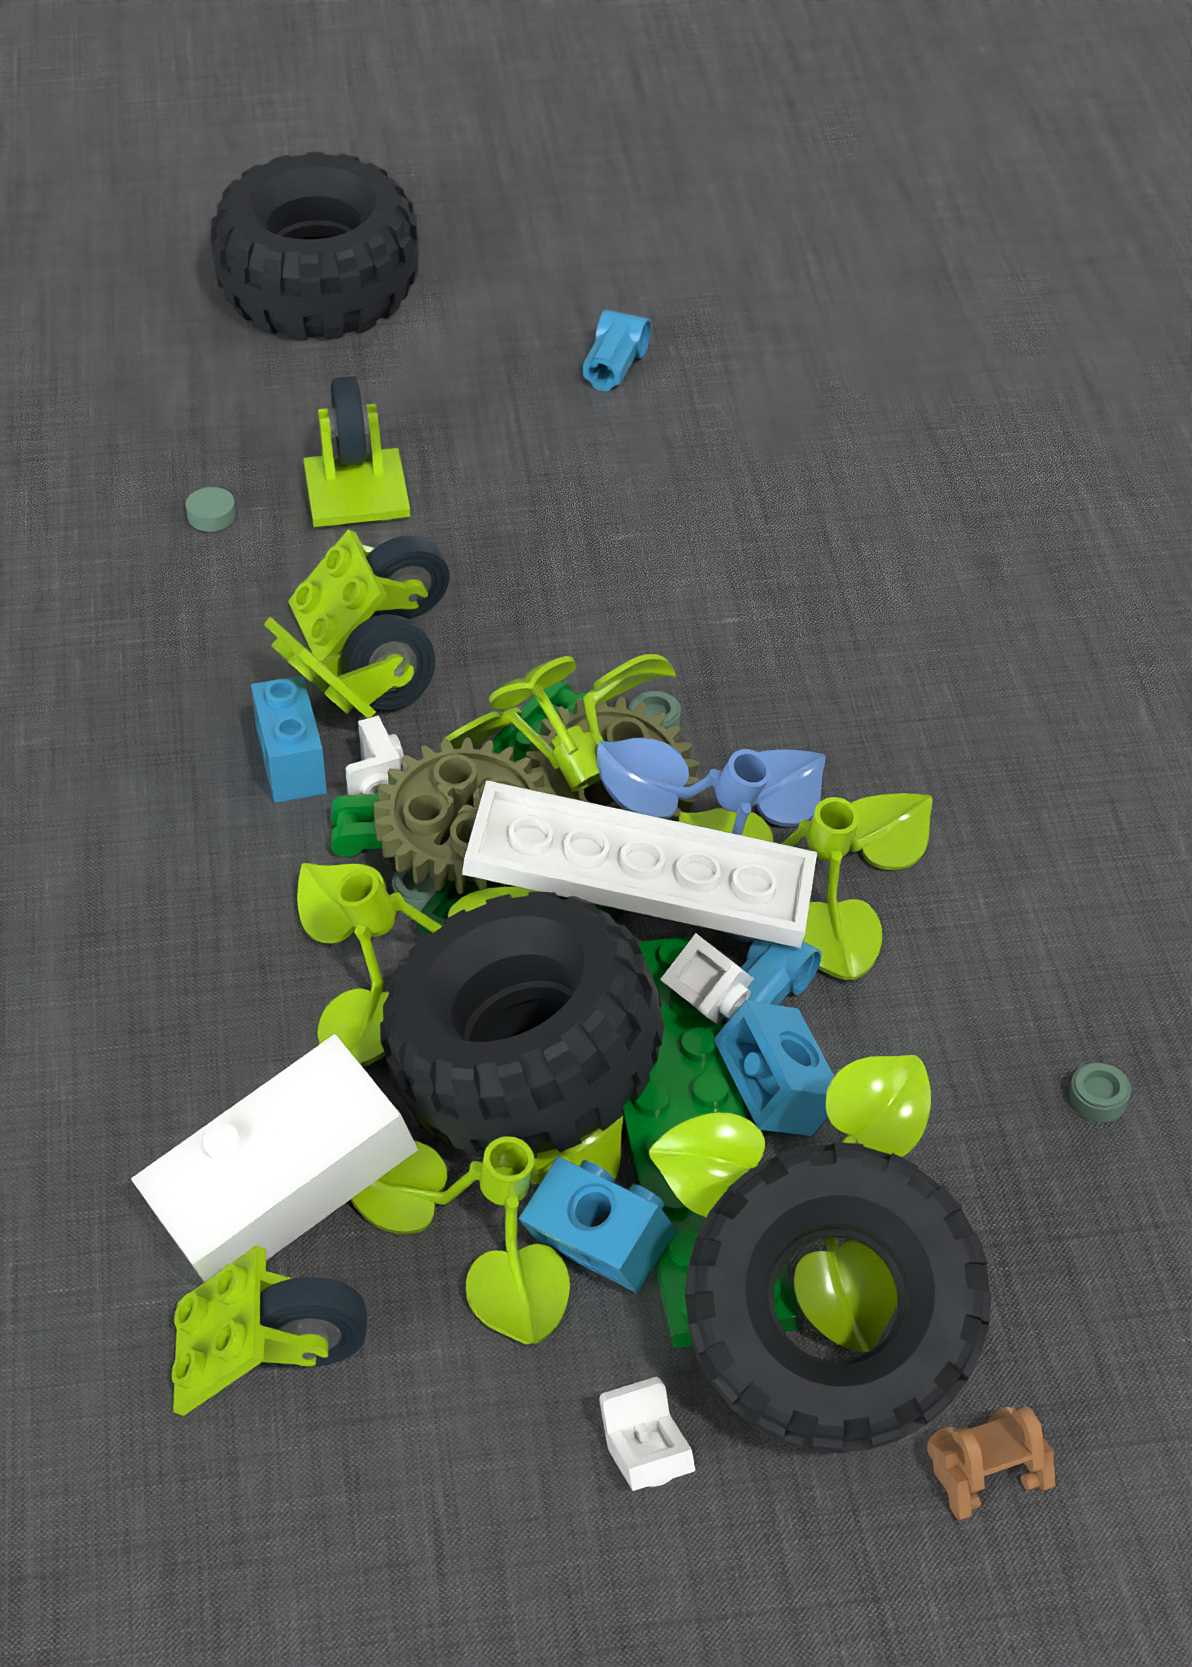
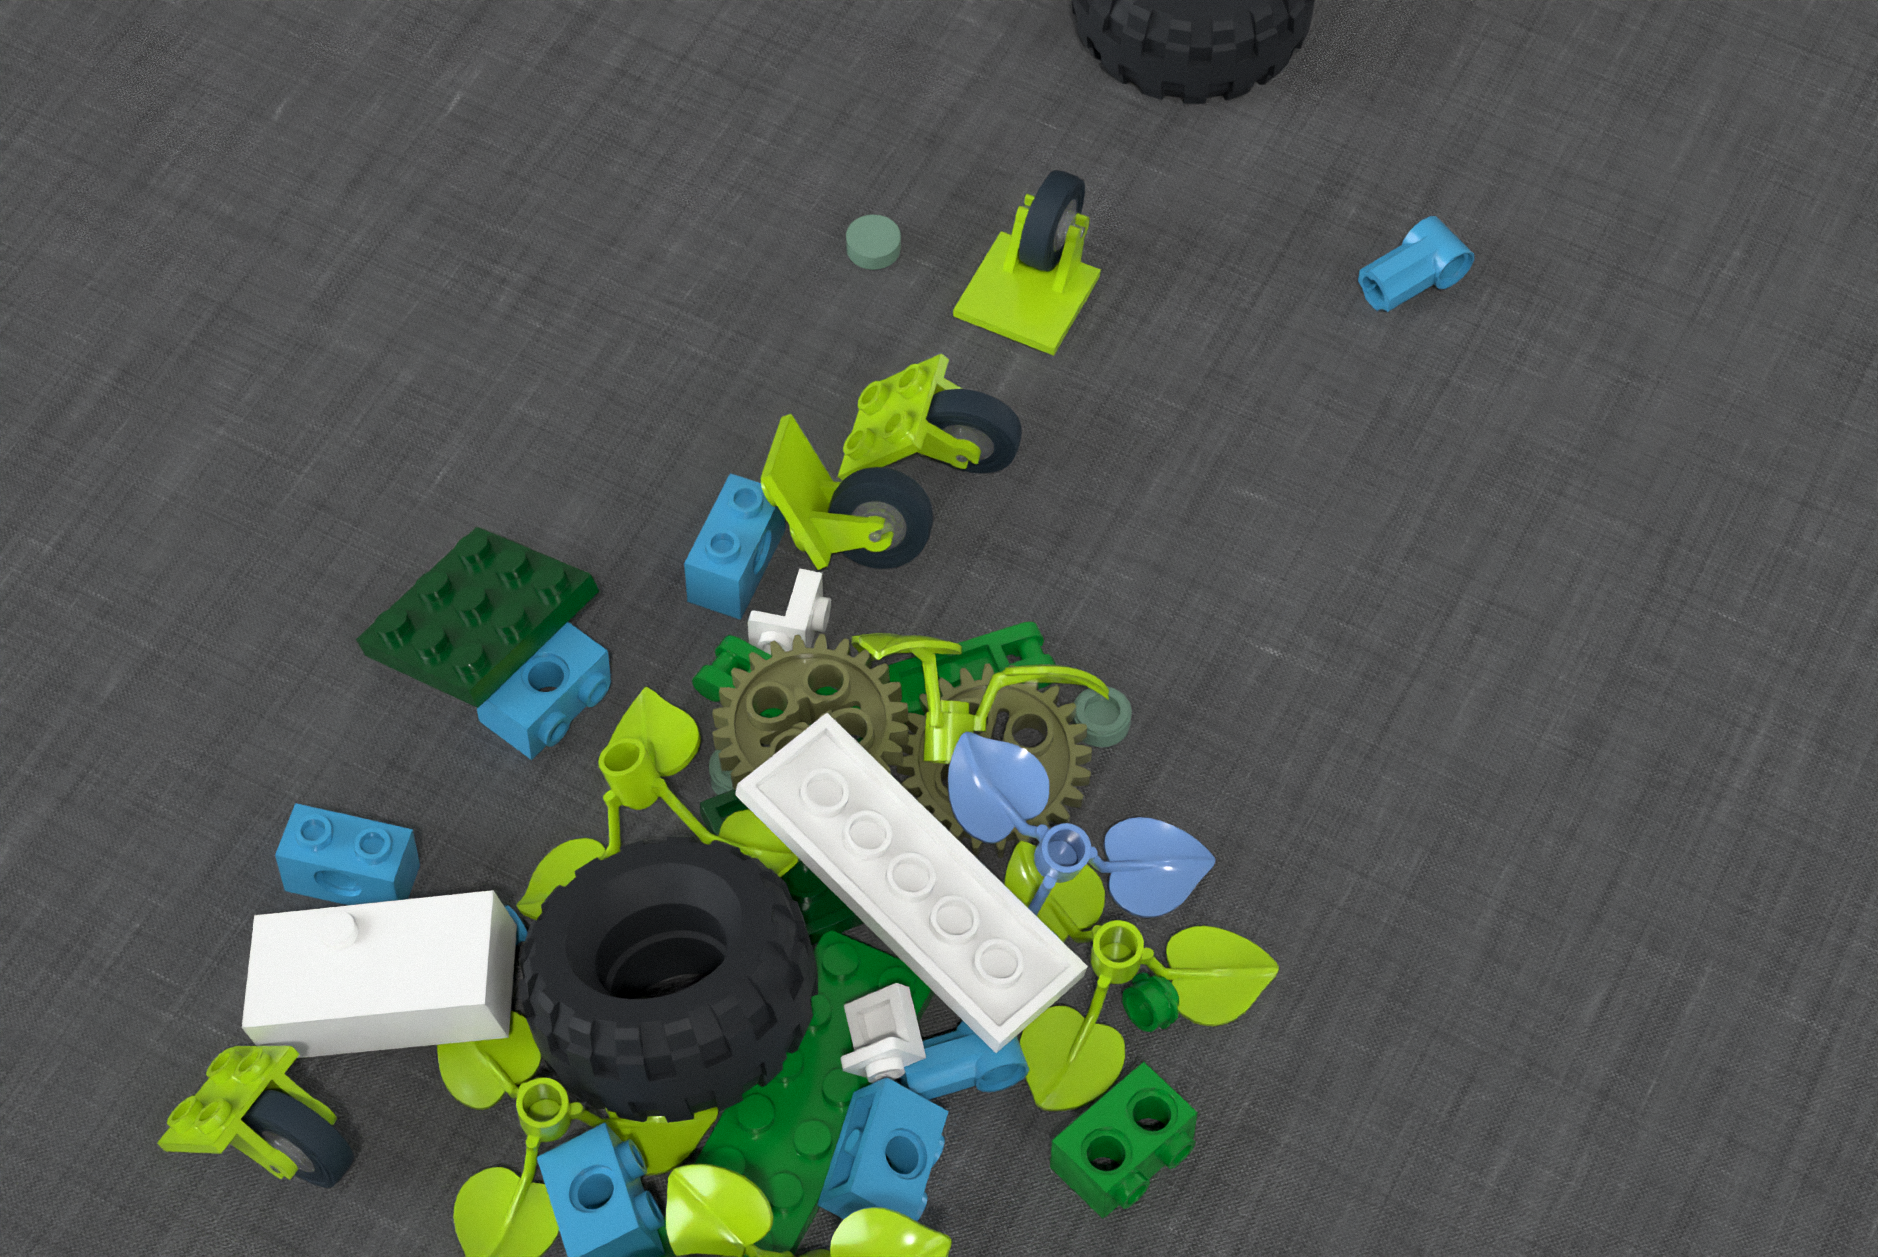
camera: 35 degrees right, 10 degrees up
(125, 883) = (477, 616): none -> dark green plate
(161, 1104) = (346, 857): none -> dark azure brick
(219, 906) = (541, 719): none -> dark azure brick
(860, 878) = (1151, 1002): none -> green plate
(932, 963) = (1112, 1132): none -> green brick

